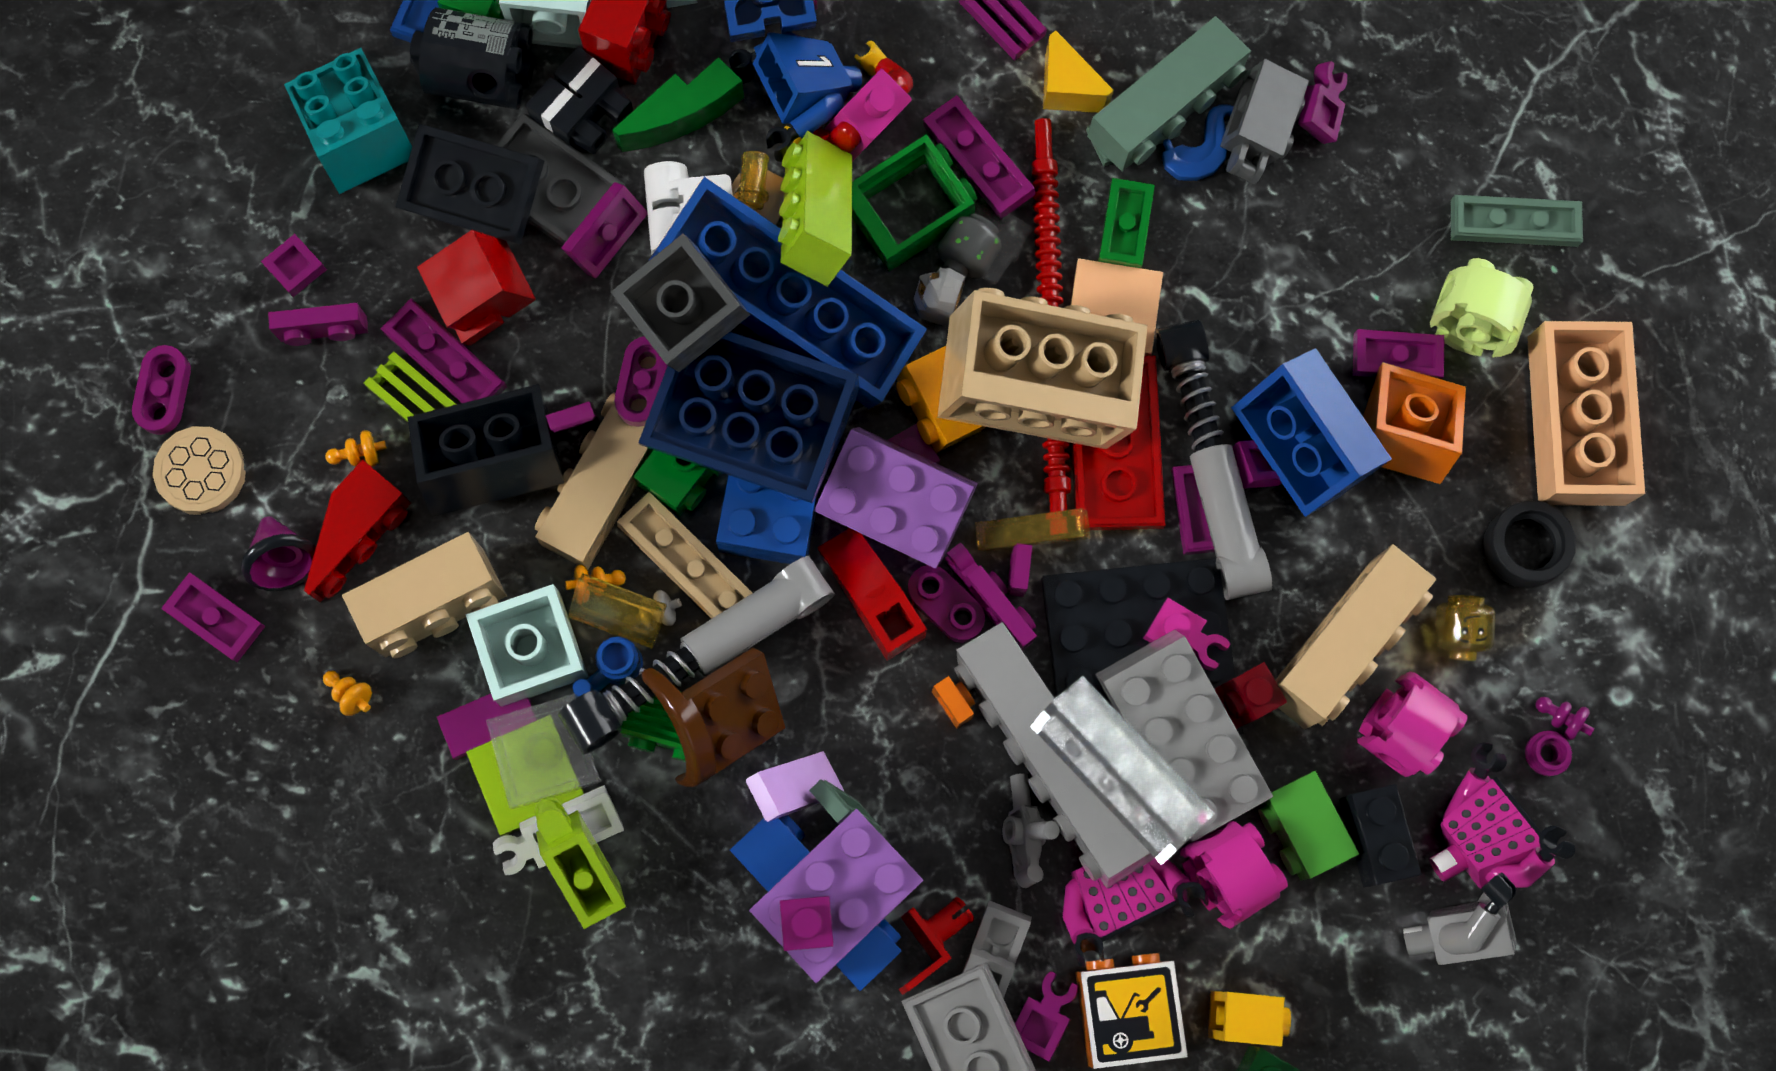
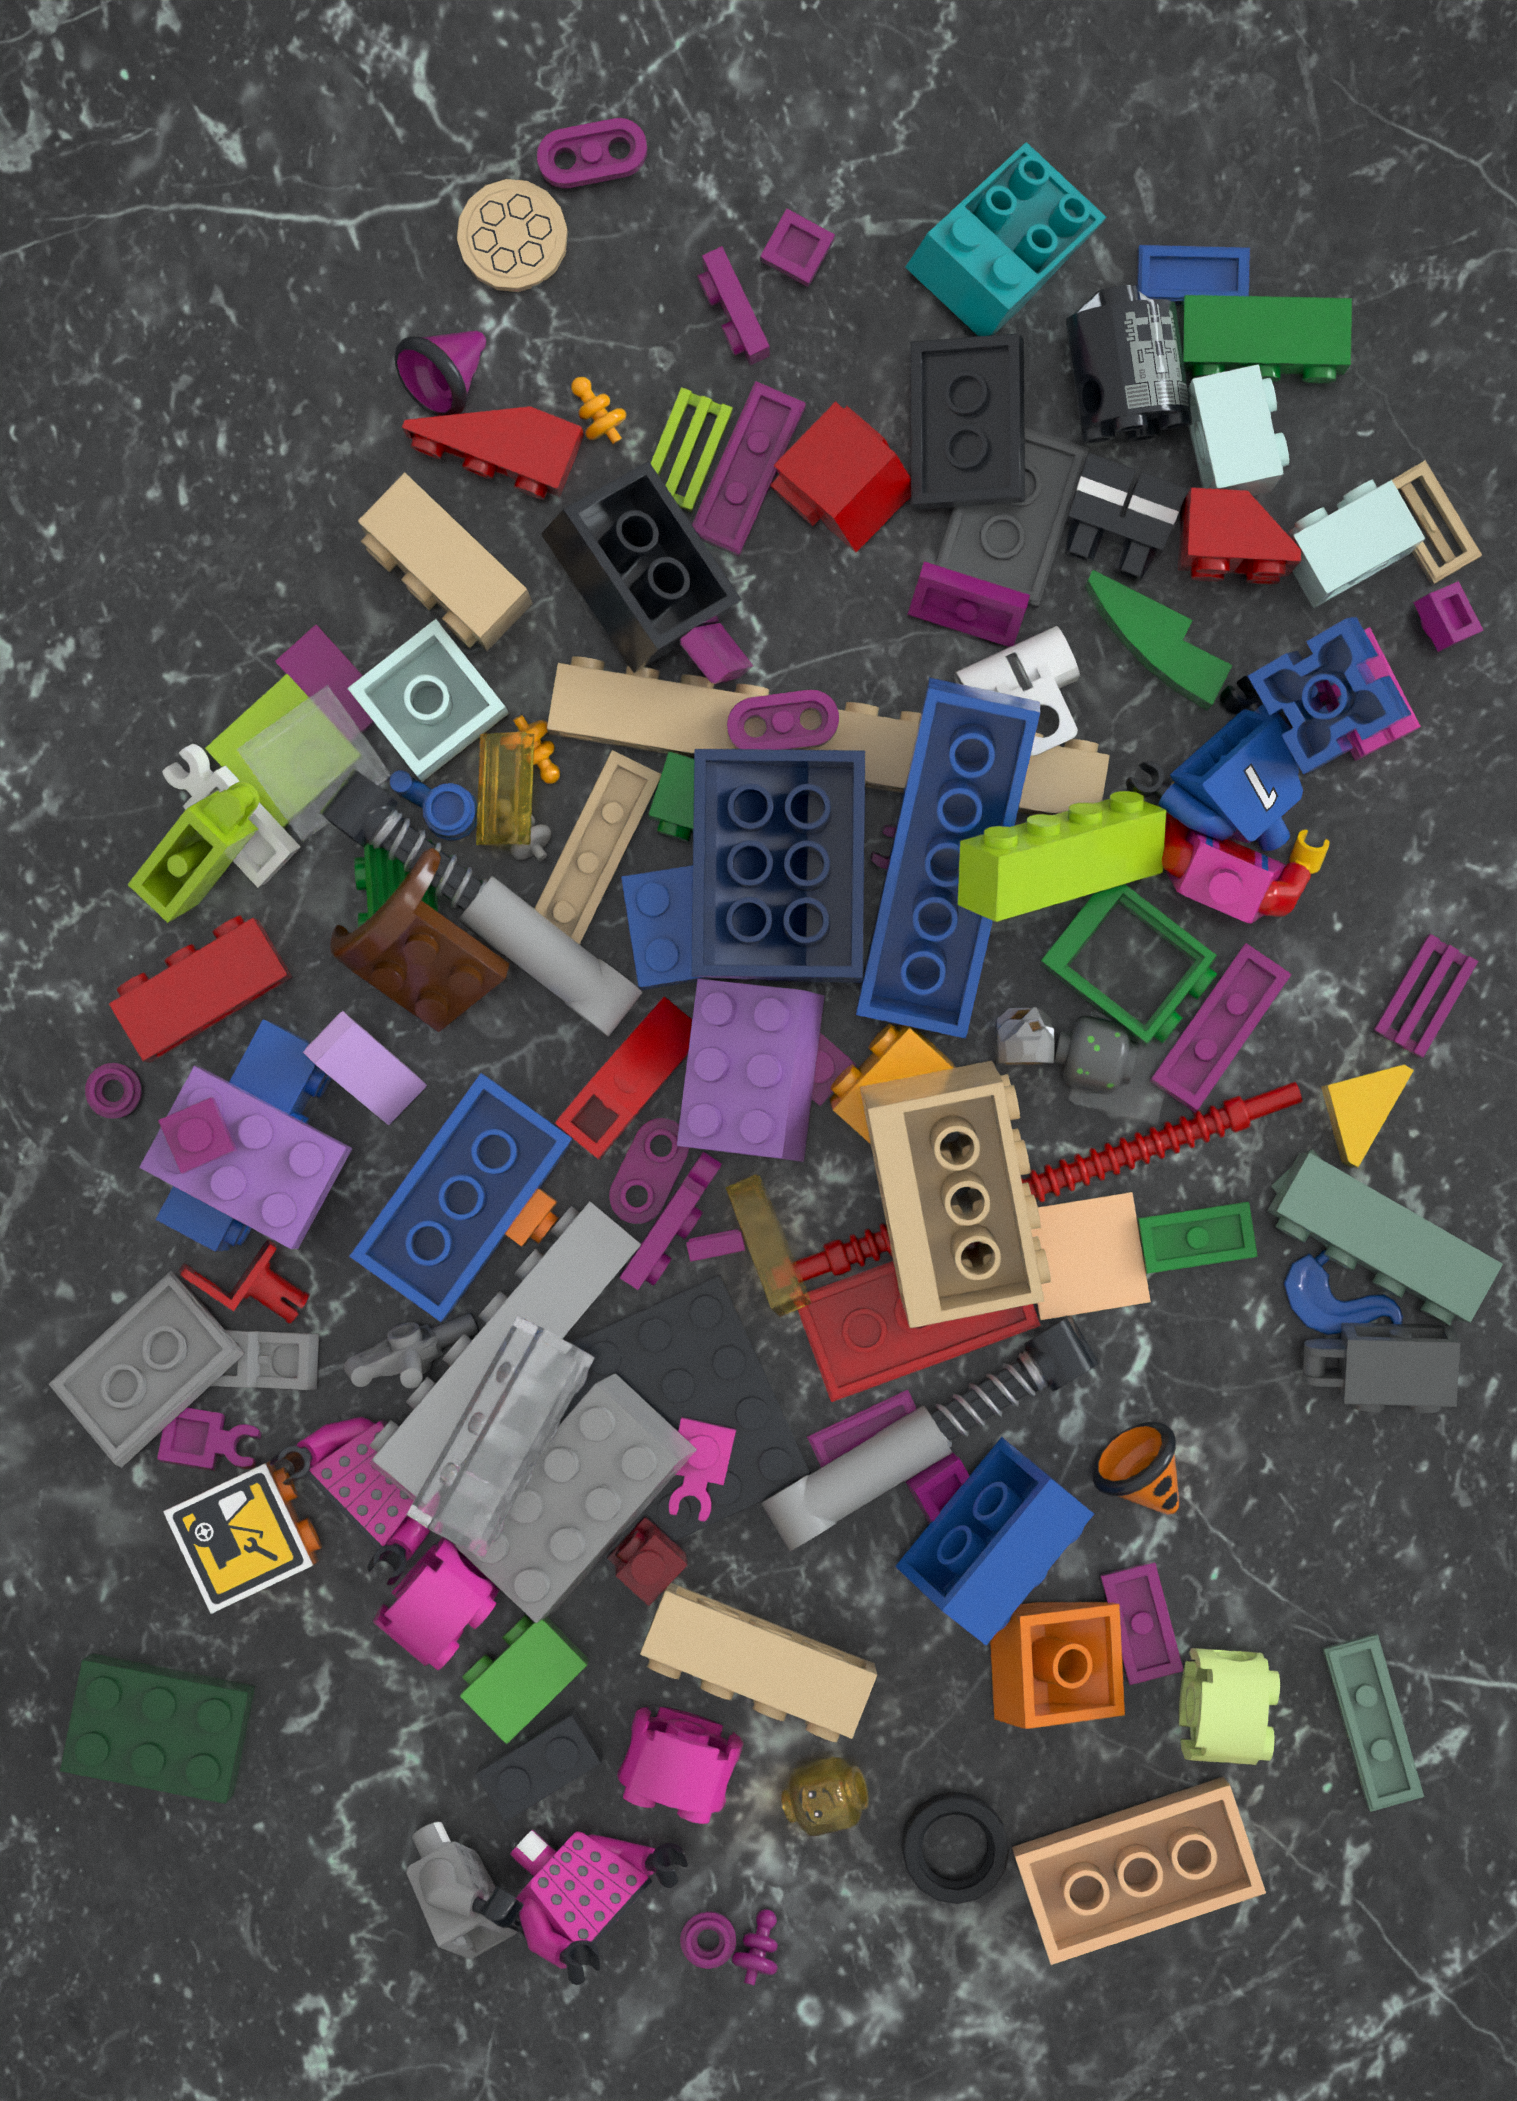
camera: 80 degrees right, 10 degrees up
(213, 617) = (344, 323): magenta plate -> none
(350, 694) = (311, 507): light orange hair -> none
(680, 303) = (866, 742): dark grey brick -> none
(685, 902) = (199, 988): none -> red brick
(728, 995) = (96, 1086): none -> magenta plate
(753, 180) = (1079, 765): clear yellow pin -> none
(839, 803) = (362, 1131): sand green tile -> none
(920, 747) = (461, 1197): none -> blue brick
(1248, 1018) = (276, 1670): yellow brick -> none
(1272, 312) = (1140, 1467): none -> hat
(1322, 106) = (1438, 1434): magenta plate -> none

